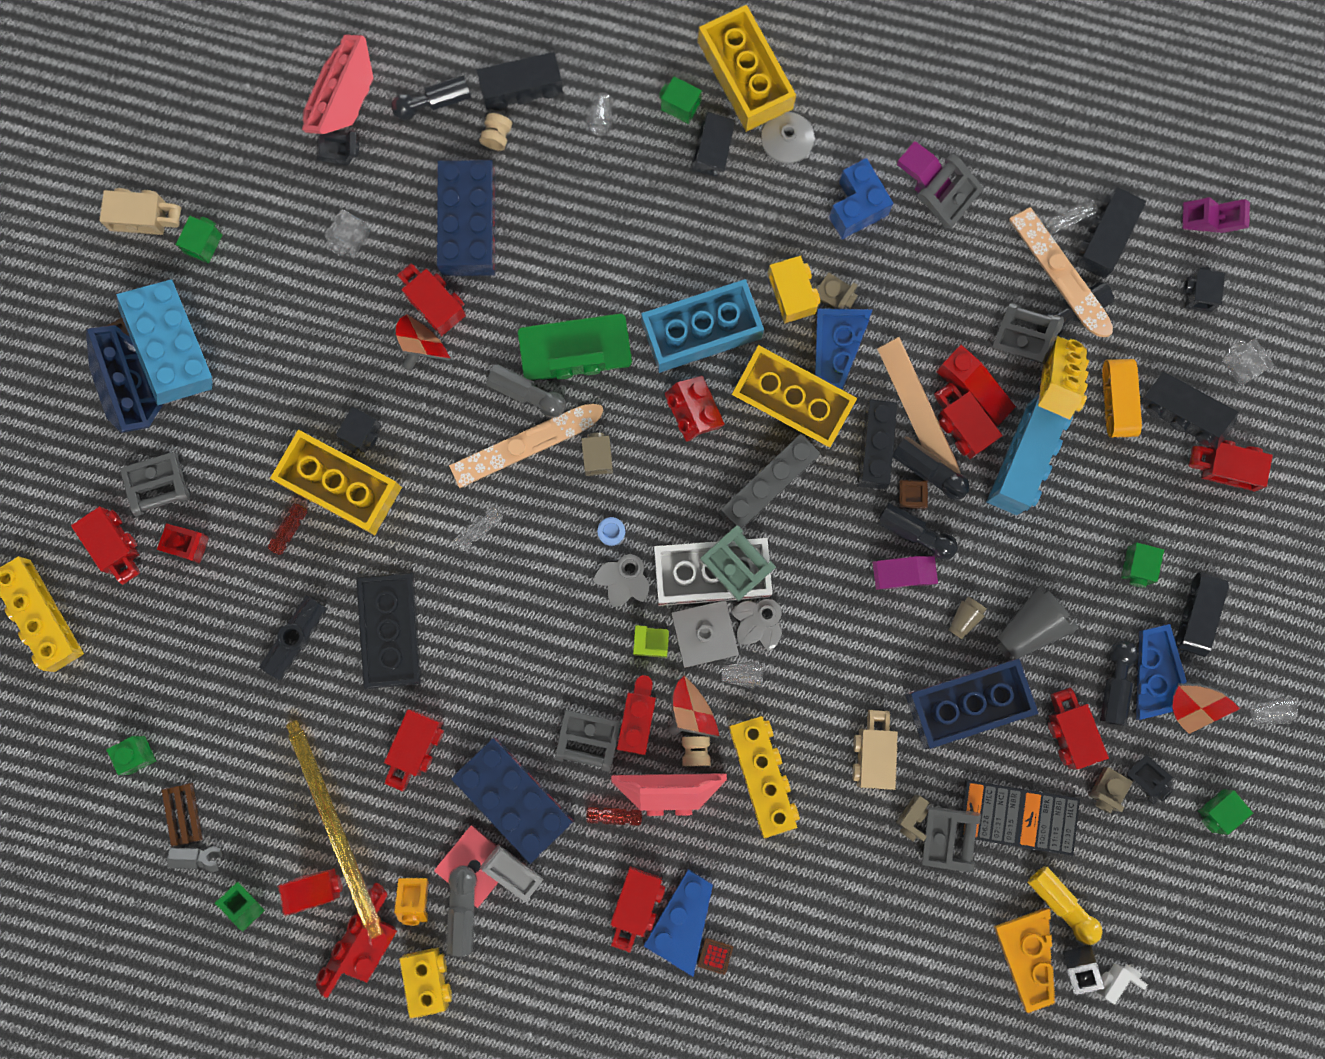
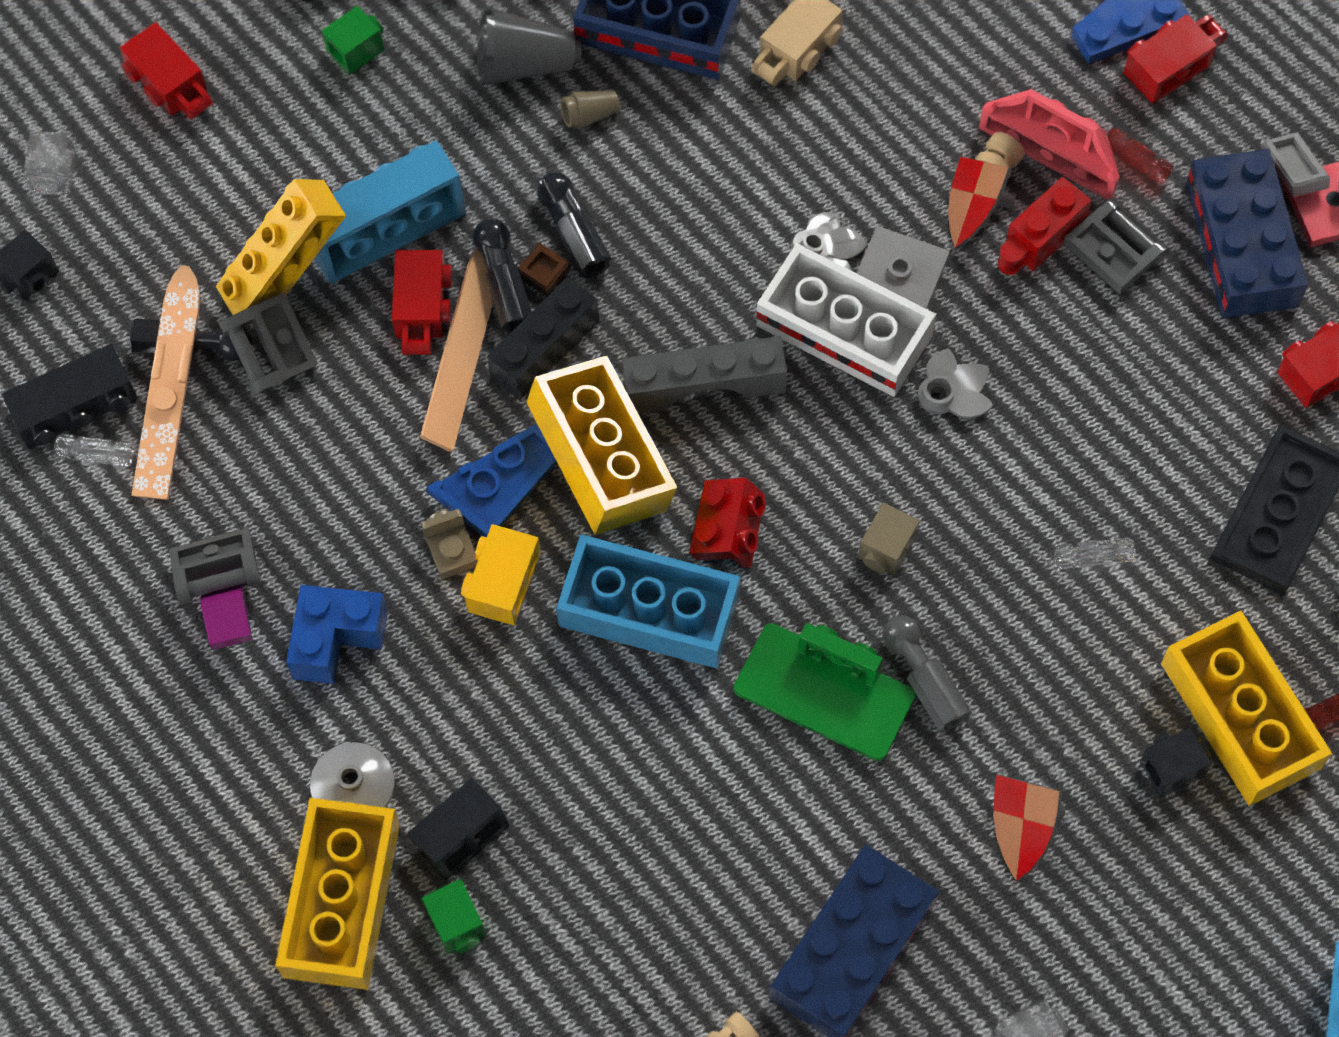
camera: 140 degrees left, 15 degrees down
(432, 299) = (971, 870): red brick -> none
(525, 444) = (969, 619): light nougat piece -> none
(600, 115) = (573, 973): clear cone -> none
(611, 531) = (931, 450): light blue tile -> none
(650, 642) = (971, 298): lime panel -> none
(730, 569) = (827, 287): sand green plate -> none
(743, 674) = (886, 202): clear cone -> none
(762, 776) = (940, 92): yellow brick -> none
(905, 572) = (626, 190): magenta slope -> none
(971, 375) = (374, 336): red slope -> none
(1121, 398) = (222, 215): light orange beam -> none
(1190, 410) = (166, 144): black brick -> none

